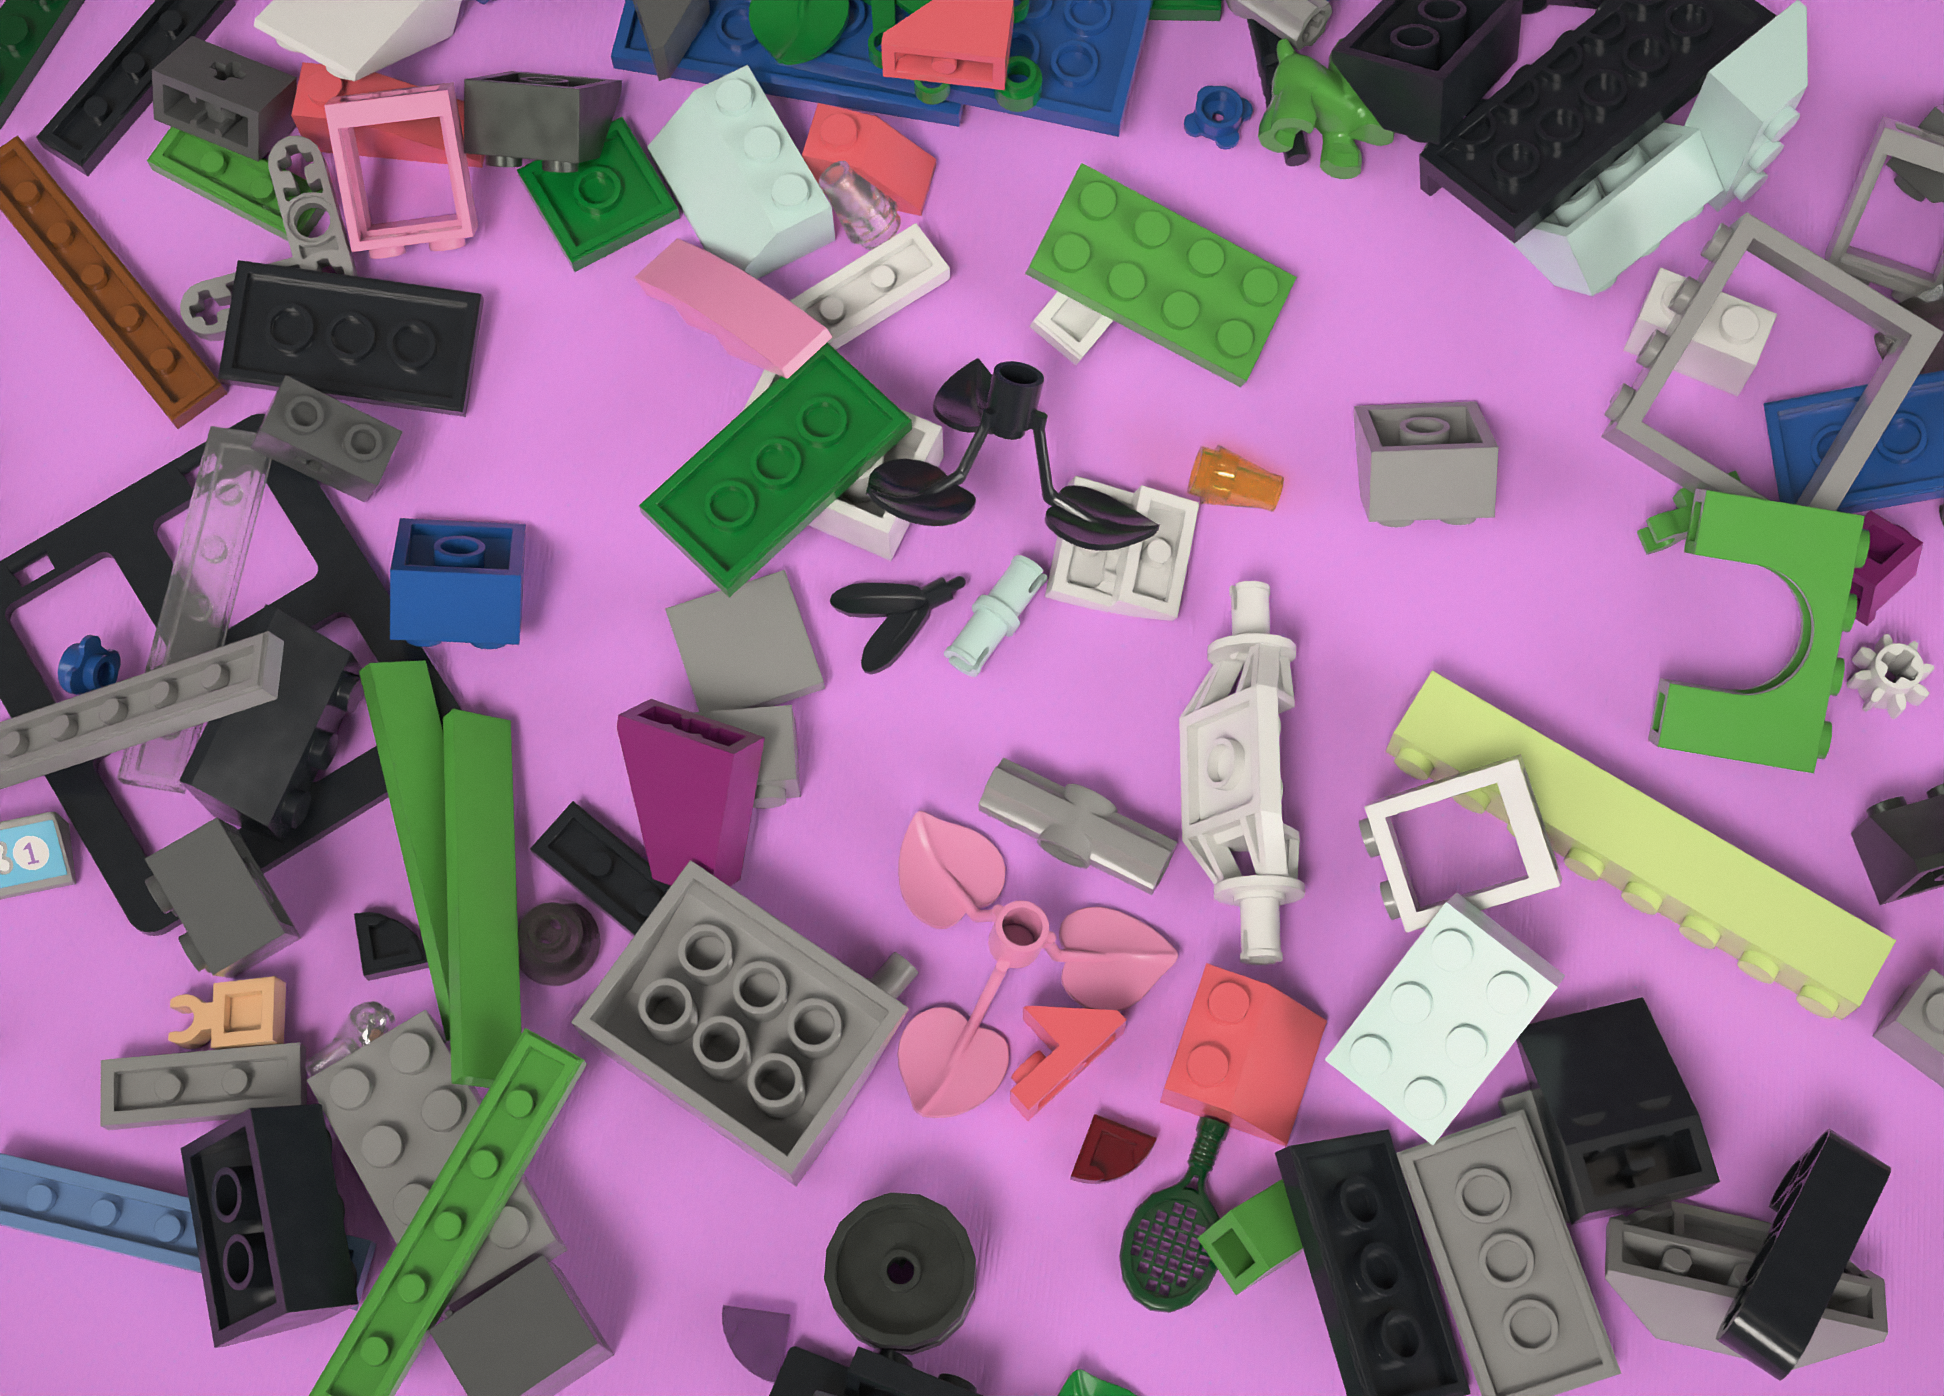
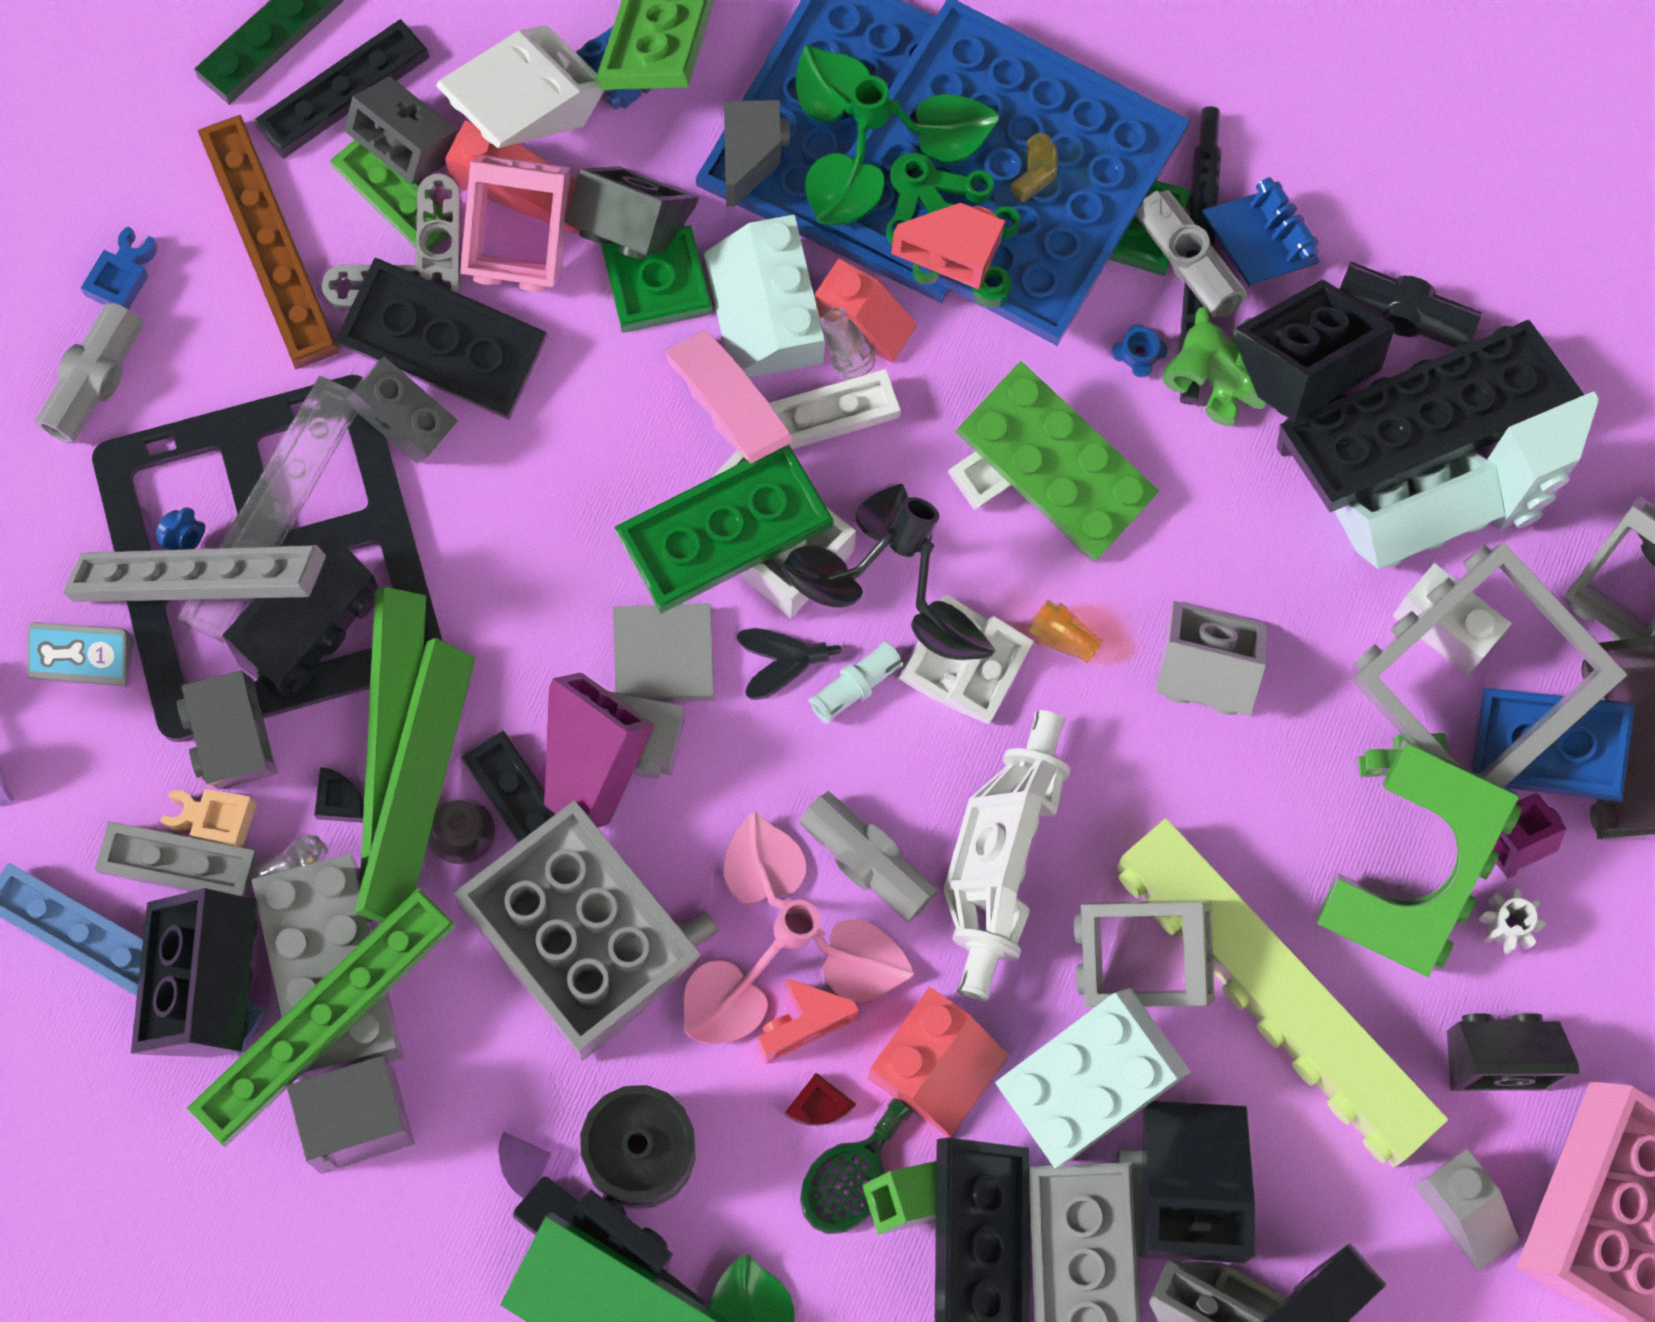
camera: 10 degrees right, 0 degrees up
(457, 583) = (466, 544): blue slope -> none

